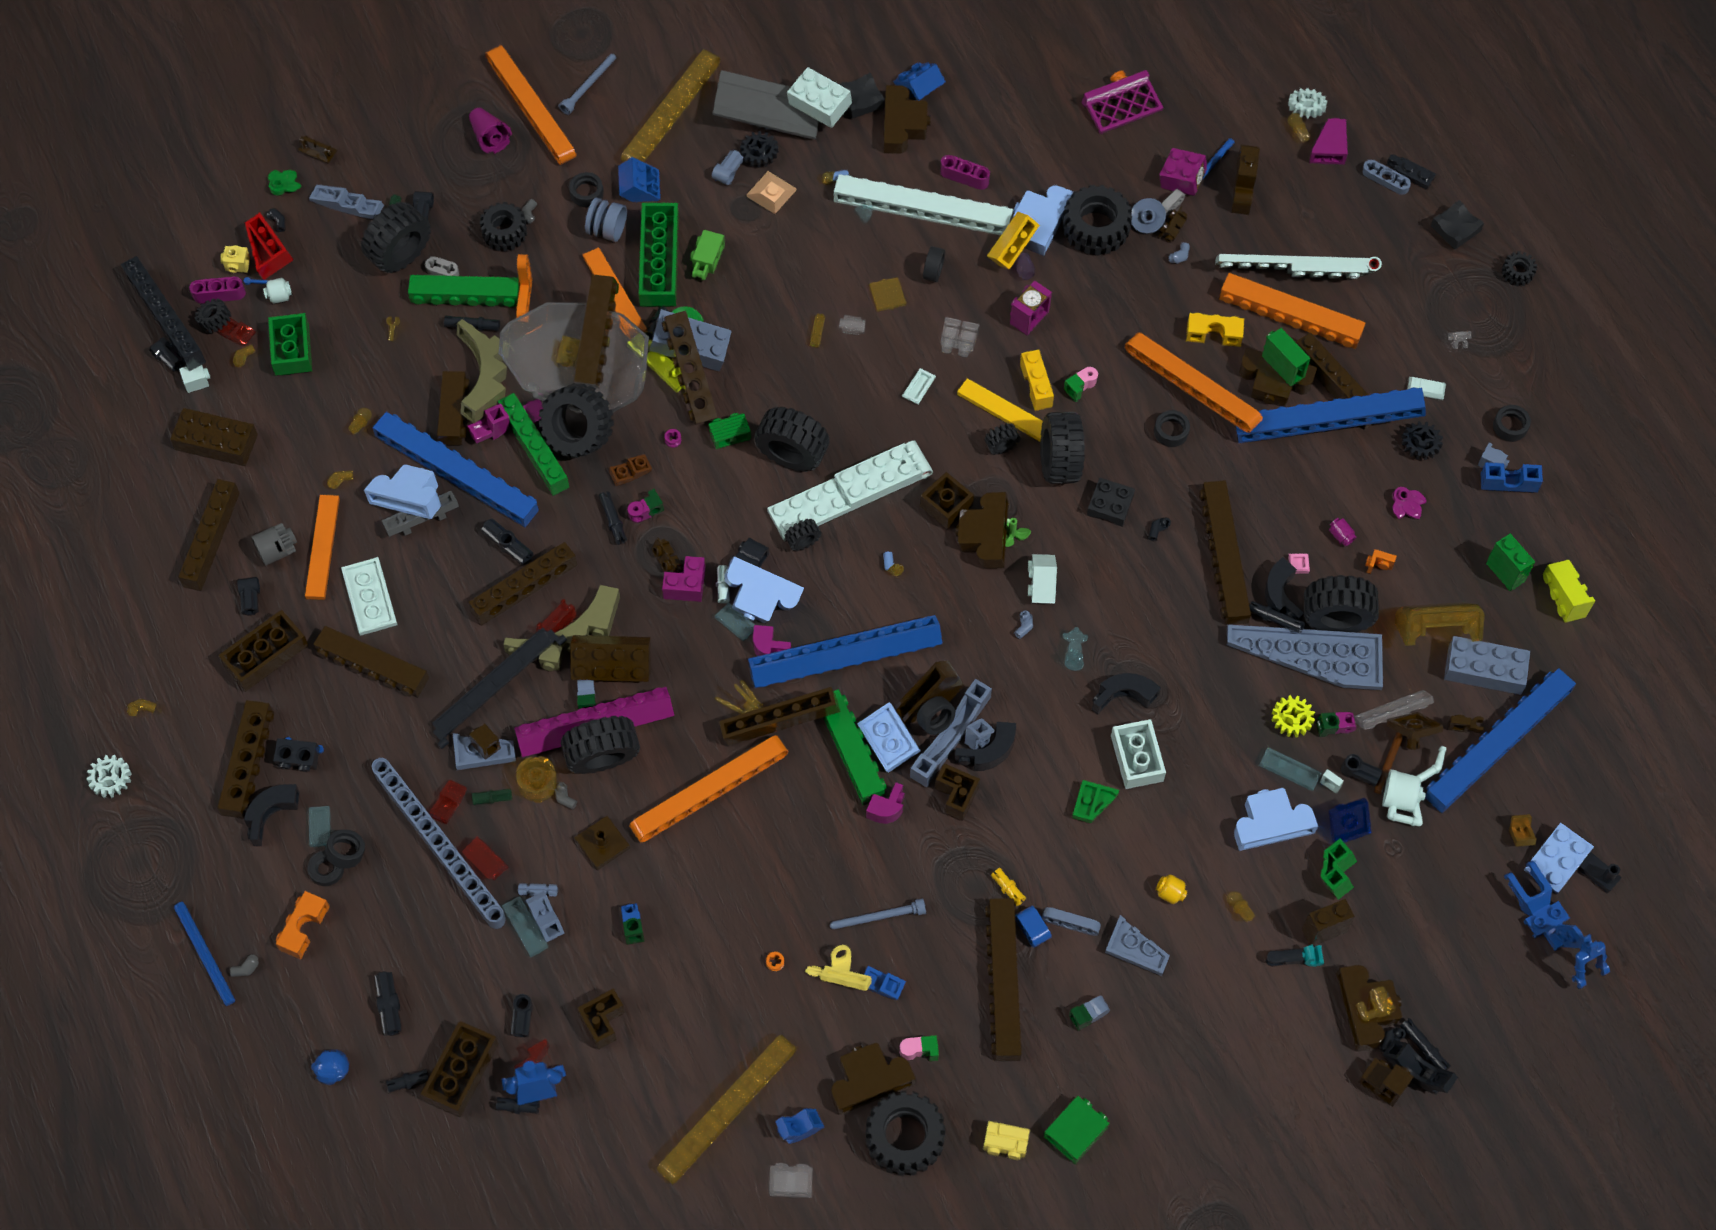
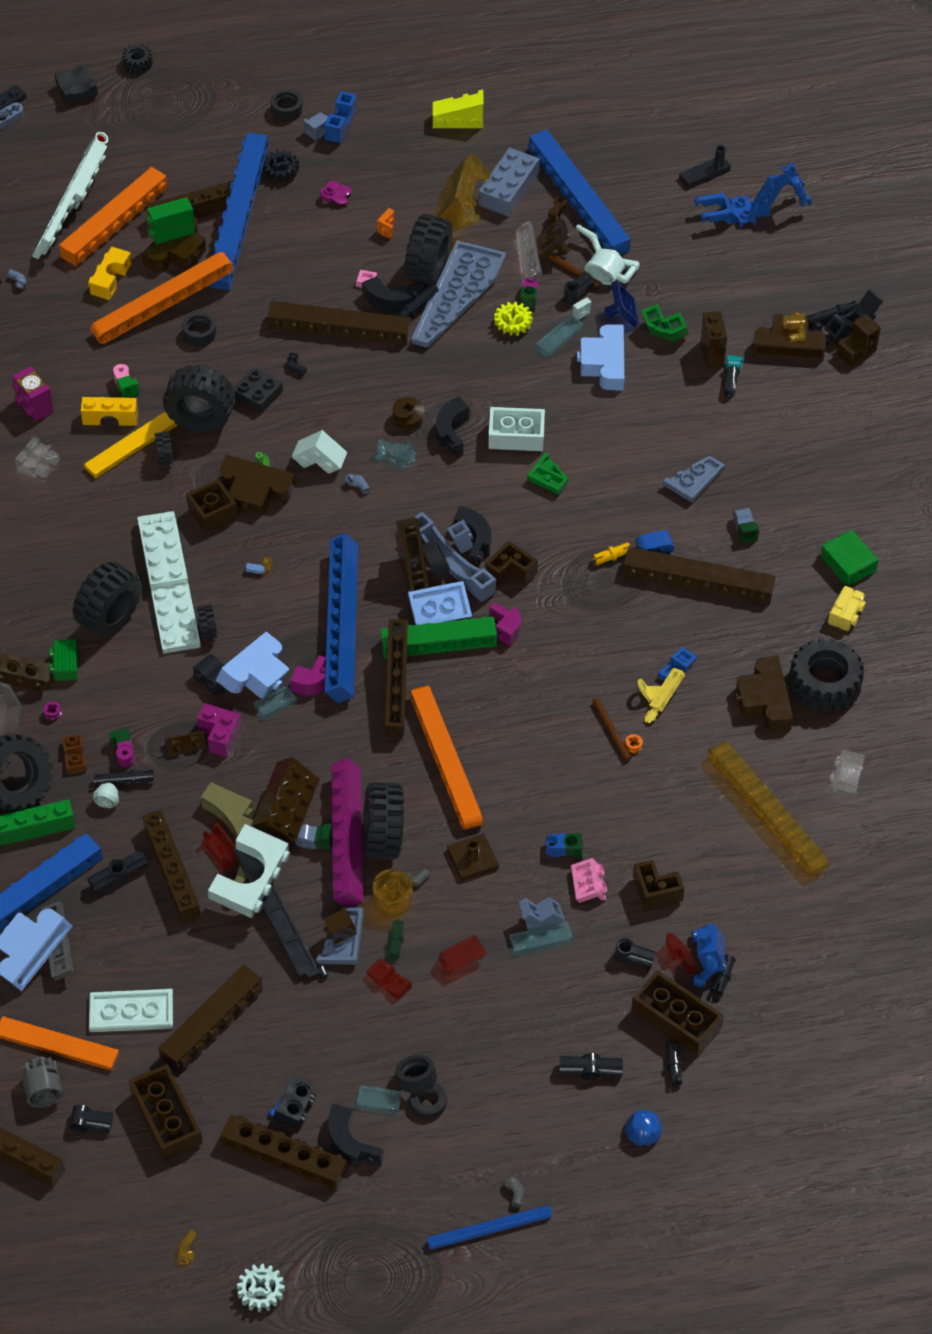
camera: 75 degrees left, 10 degrees down
(308, 908) = (498, 1141): orange arch -> none
(442, 850) = (424, 999): sand blue beam -> none
(534, 889) = (506, 919): sand blue axle -> none
(538, 659) = (248, 897): none -> light aqua arch
(588, 508) = (106, 795): none -> light aqua cone
(597, 955) = (588, 880): none -> bright pink bracket
(723, 588) = (232, 701): light aqua axle -> none
(751, 704) = (372, 705): clear yellow plant -> none
(787, 936) = (611, 729): none -> reddish brown bar
(799, 1126) = (798, 754): blue brick -> none
(917, 907) = (612, 623): sand blue piece -> none
(919, 386) = (76, 503): light aqua tile -> none
(920, 1047) = (746, 656): leg -> none
(1071, 921) = (658, 515): sand blue beam -> none
(1128, 638) = (408, 413): none -> dark brown piece
(1171, 889) = (648, 440): yellow head -> none
(1240, 906) = (669, 402): clear yellow axle -> none
(1342, 531) = (348, 240): magenta brick -> none
(1430, 388) = (227, 151): light aqua tile -> none
(1459, 336) = (189, 114): clear tile -> none
(1510, 562) = (423, 136): green brick -> none
(1521, 830) = (664, 203): pearl gold bracket -> none
(1561, 856) = (691, 183): light blue plate -> none

